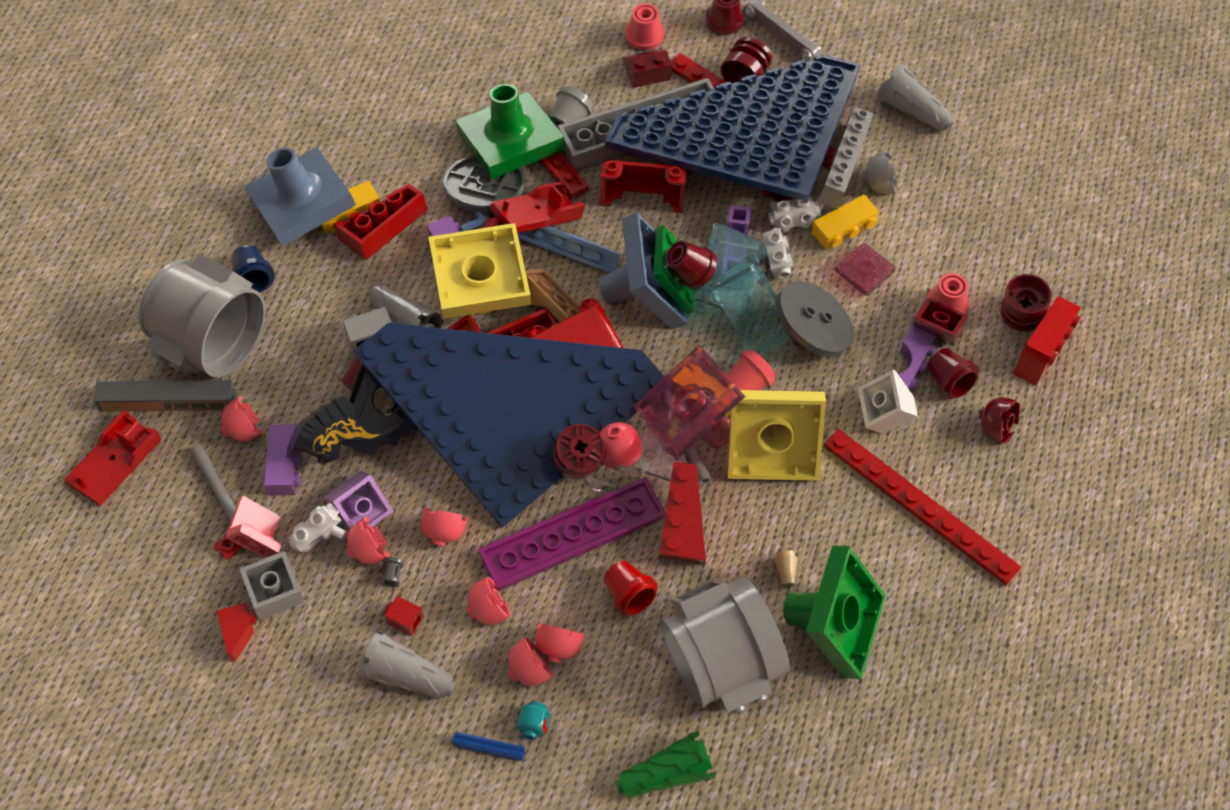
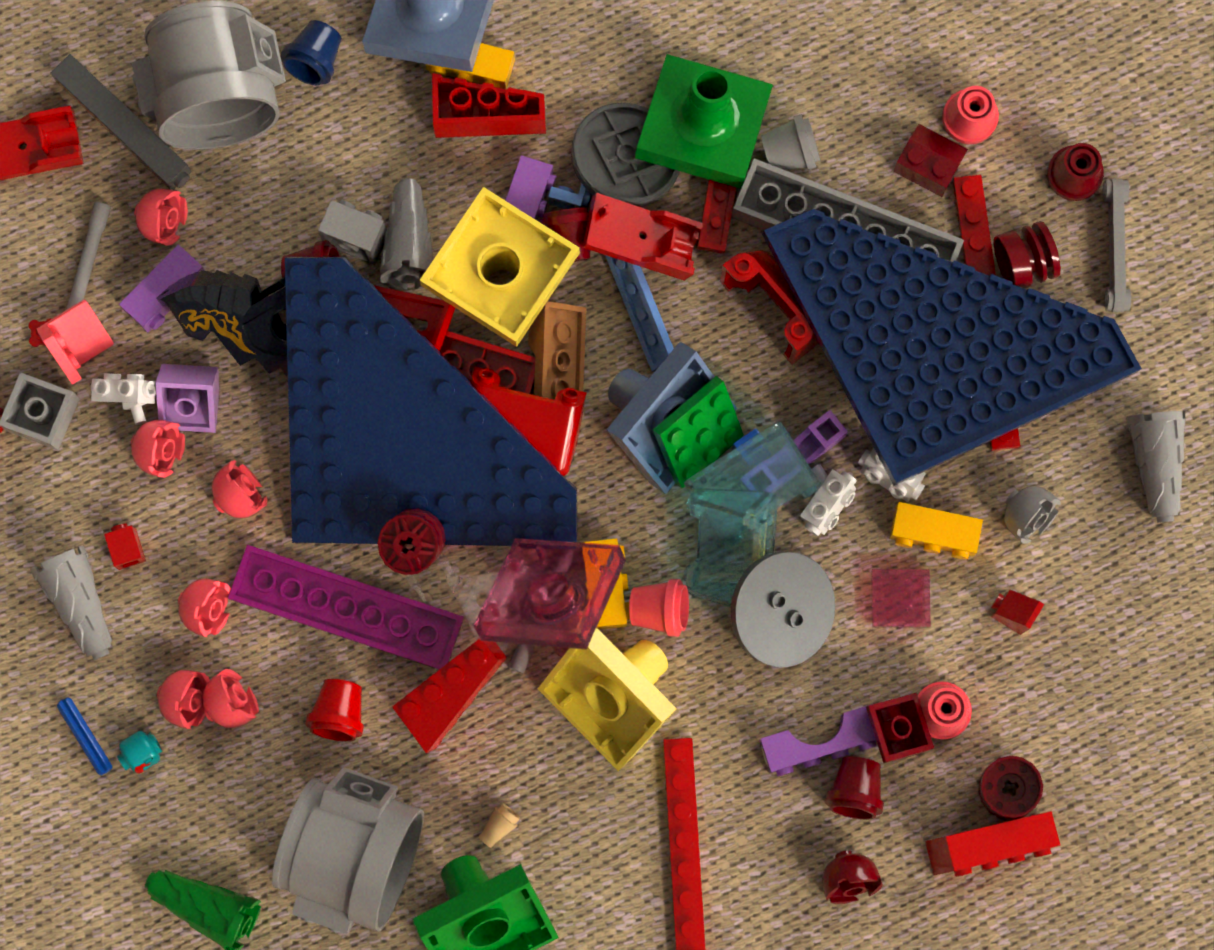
camera: 45 degrees right, 20 degrees up
(391, 572) = (154, 494): dark grey bush -> none
(621, 445) = (462, 566): coral cylinder -> none
(691, 263) = (704, 450): dark red piece -> none
(845, 158) = (1008, 462): light grey brick -> none
(886, 403) = (754, 761): white slope -> none
(930, 221) = (1016, 611): none -> red slope

